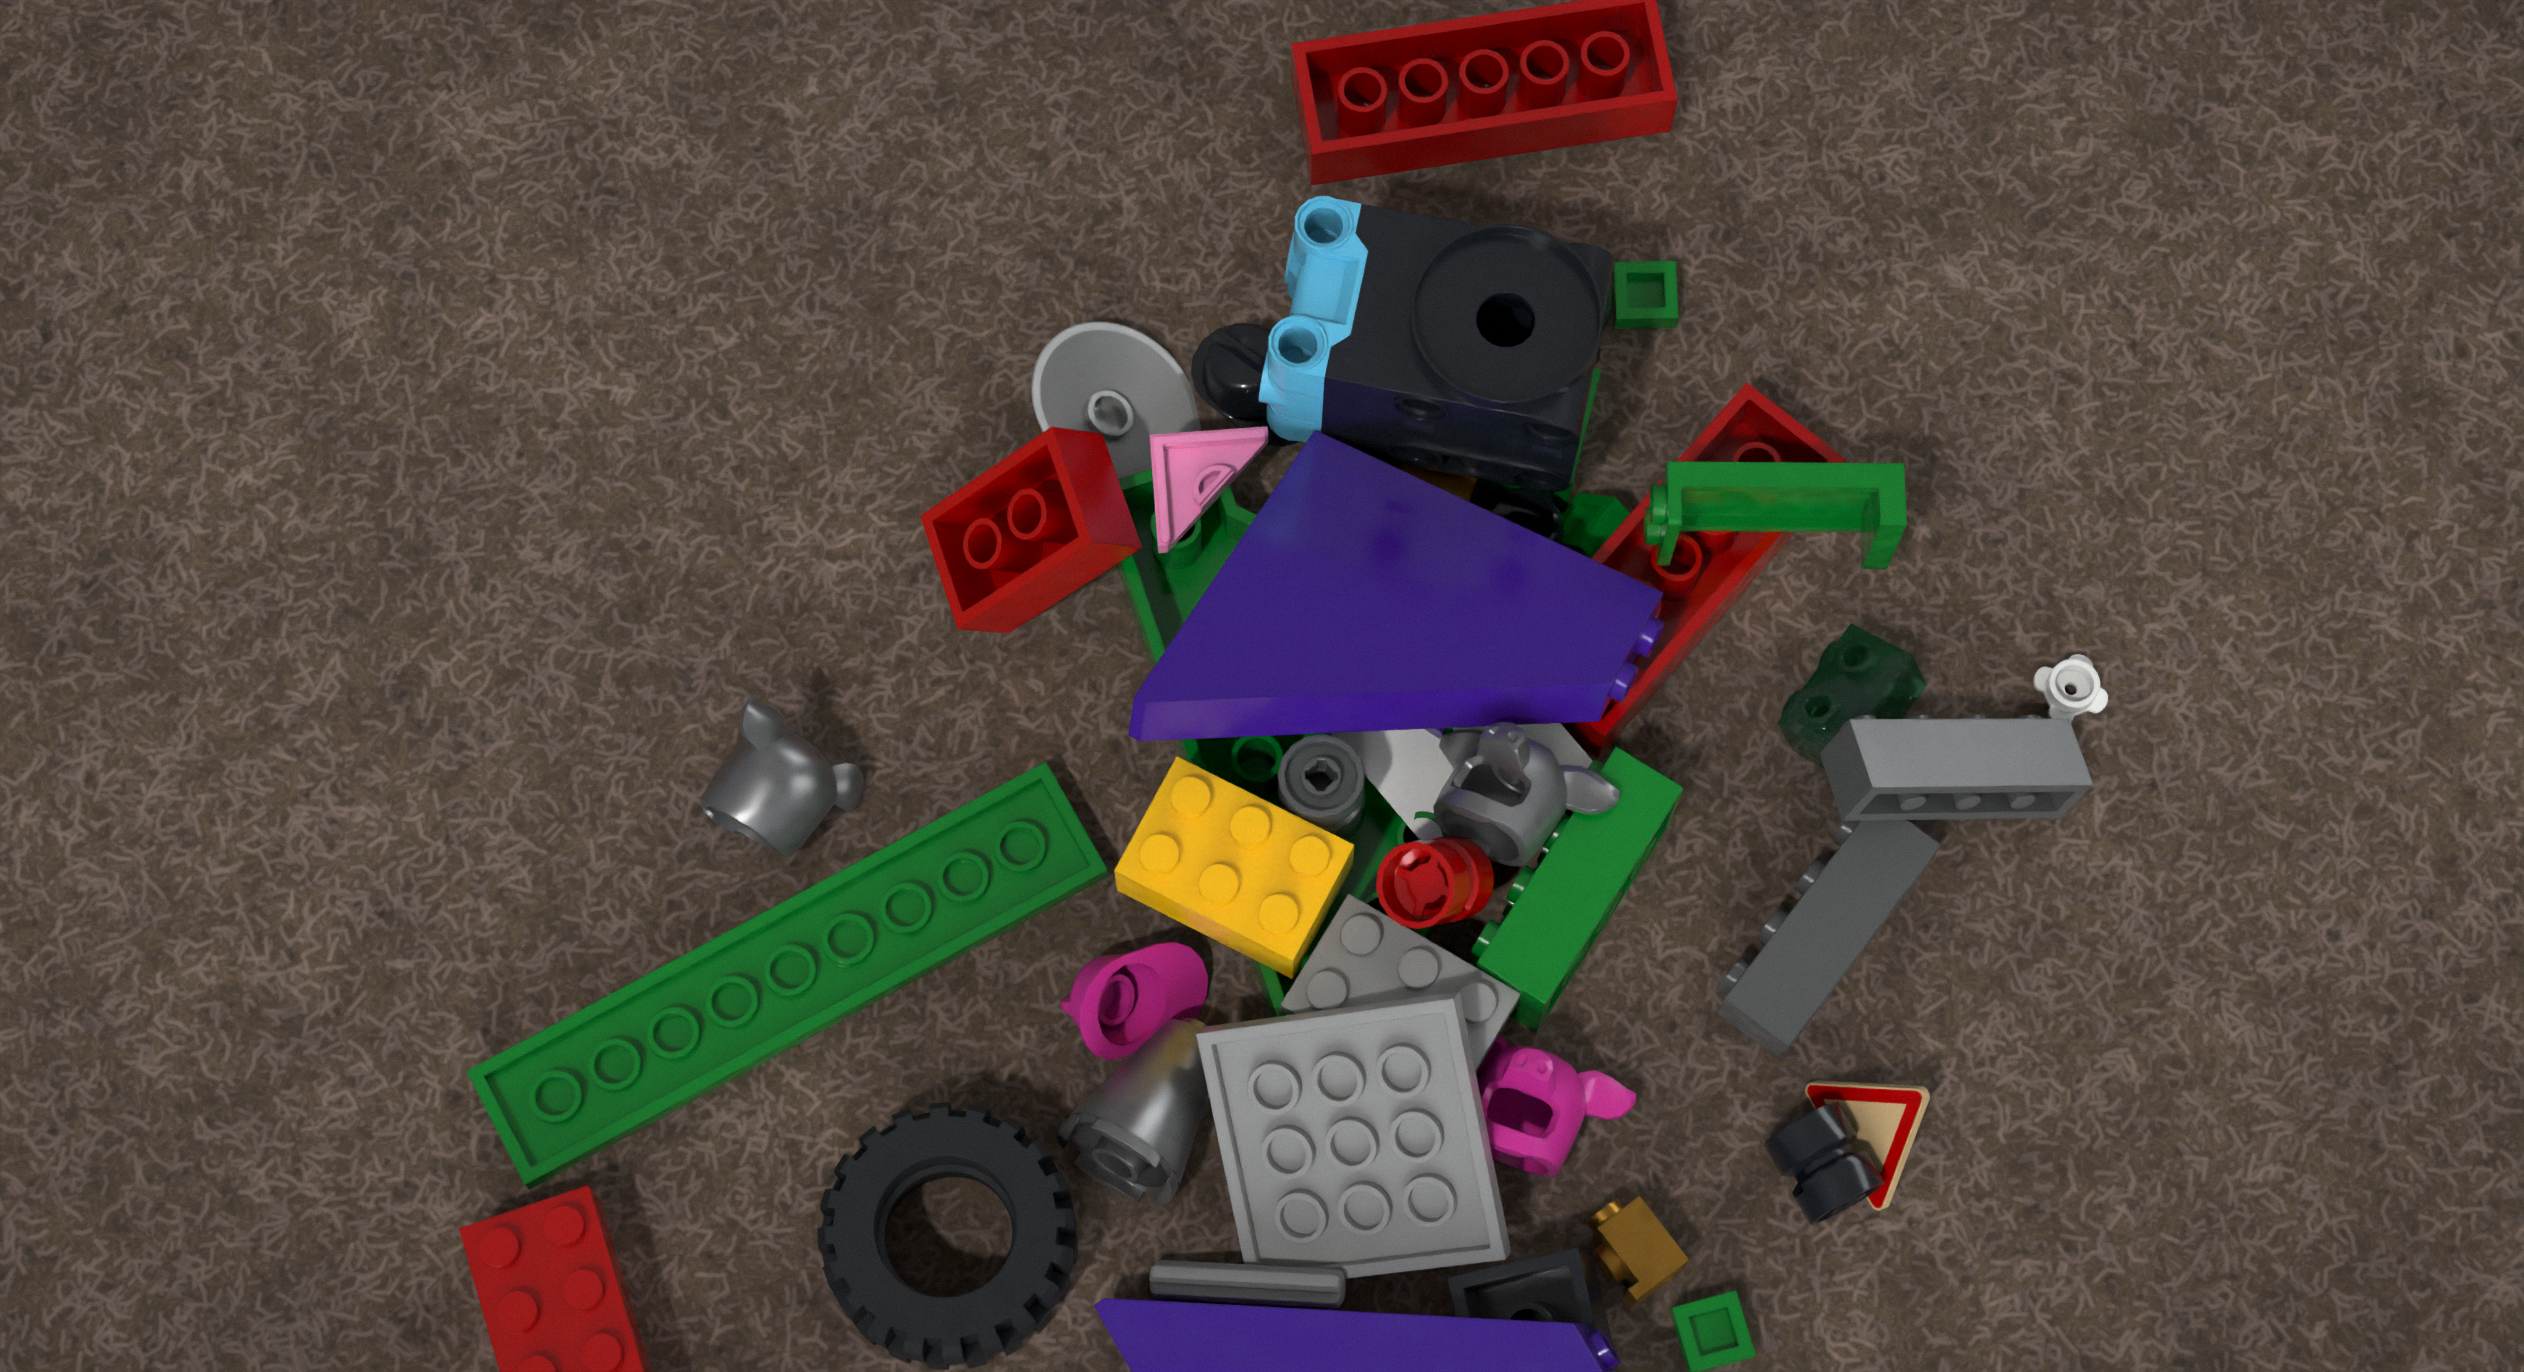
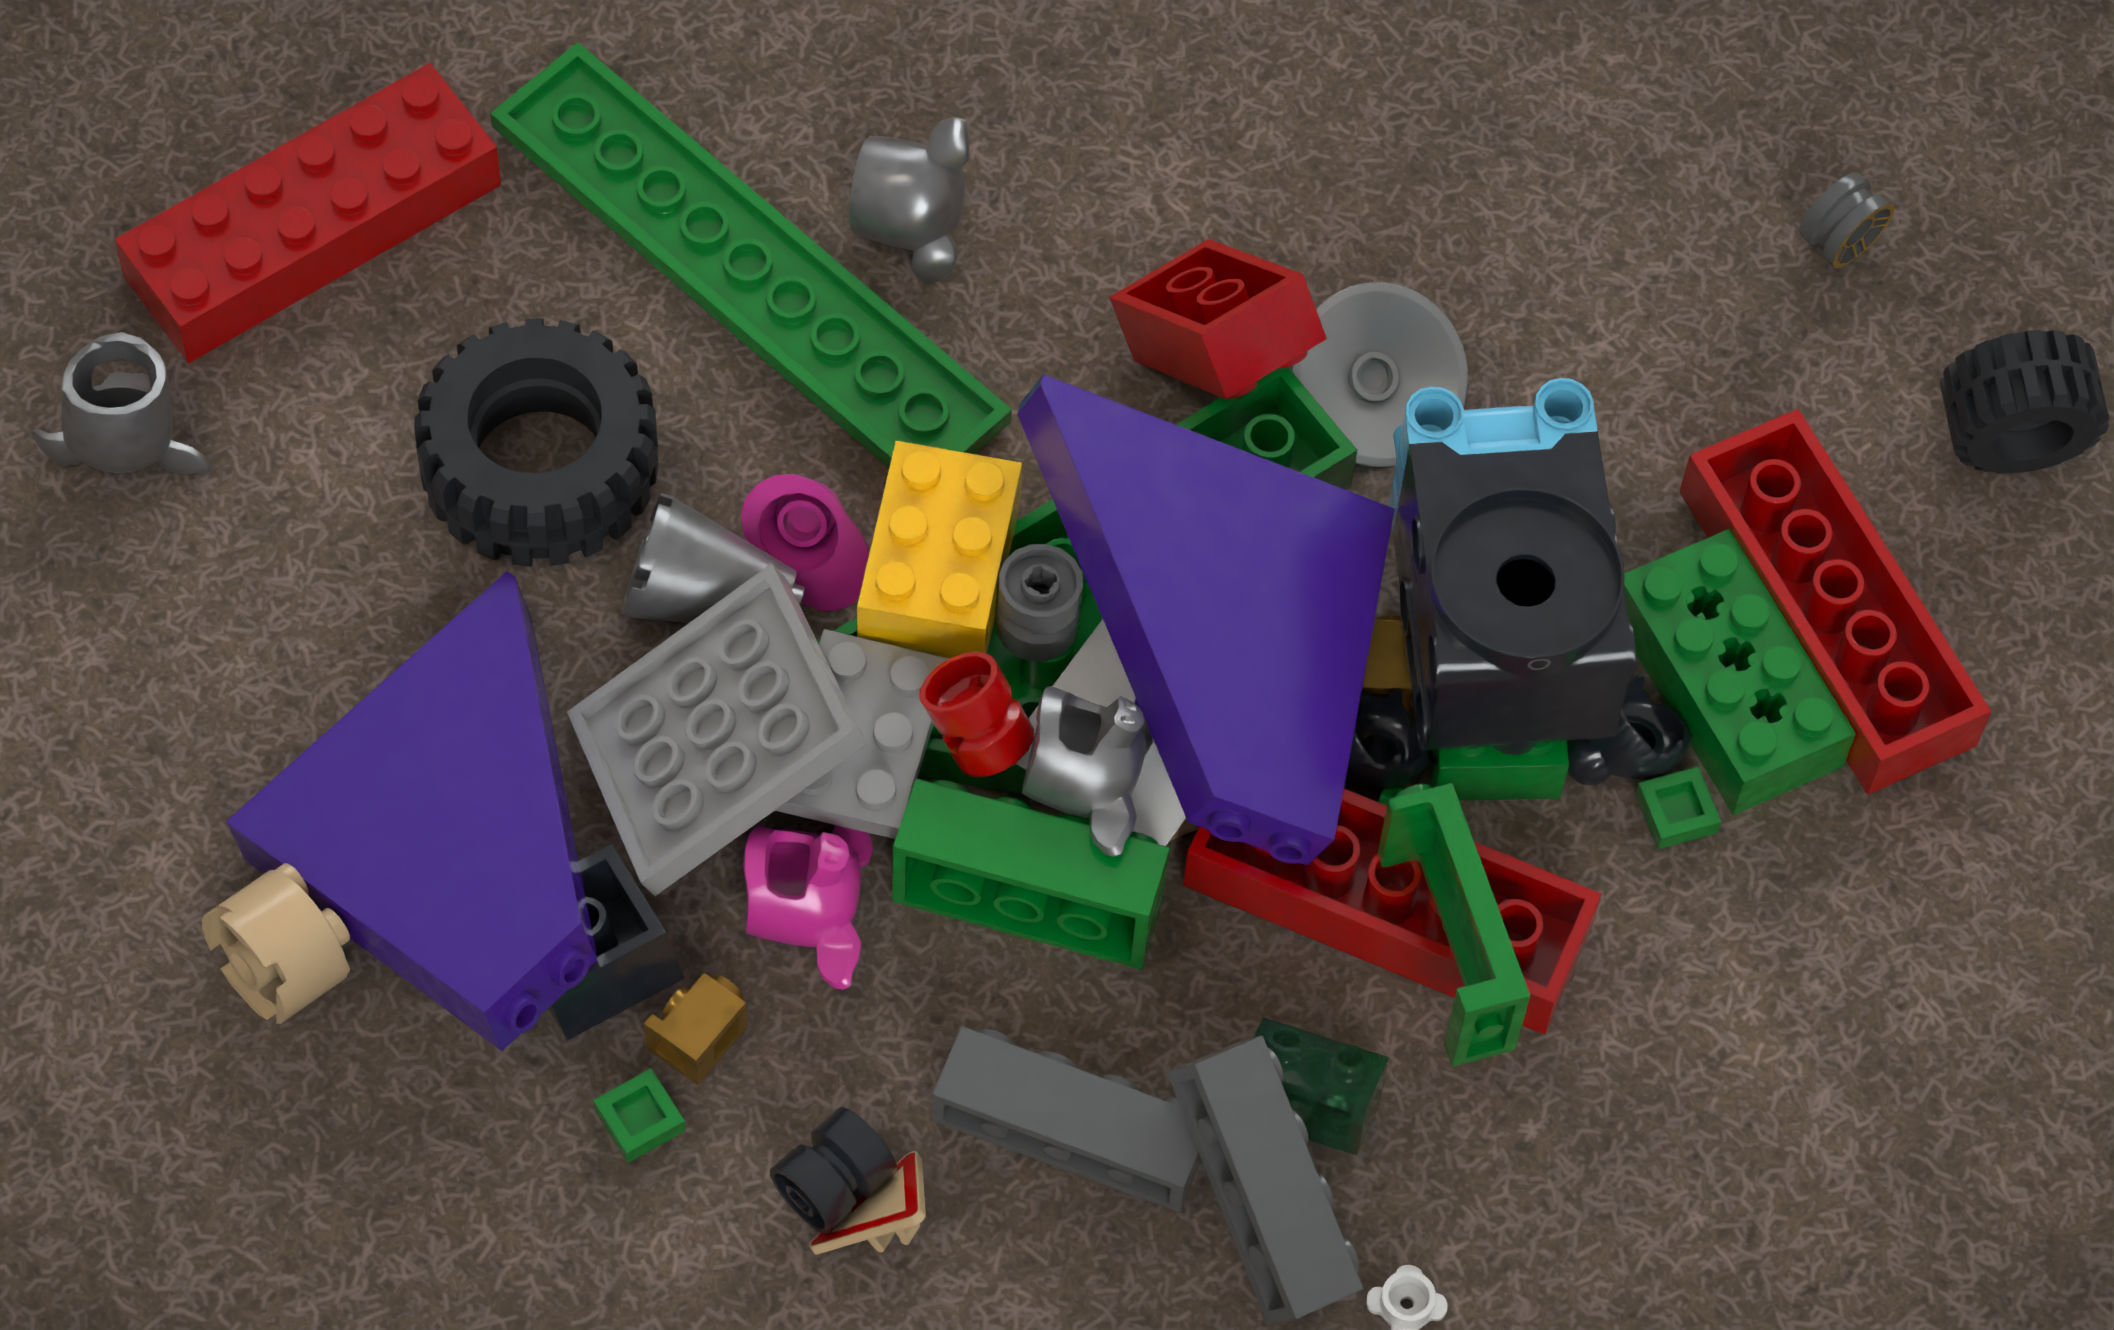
camera: 70 degrees right, 10 degrees down
(1194, 471) = (1320, 431): bright pink tile -> none
(1247, 1284) = (567, 700): light grey axle -> none
(1550, 169) = (1734, 672): none -> green brick

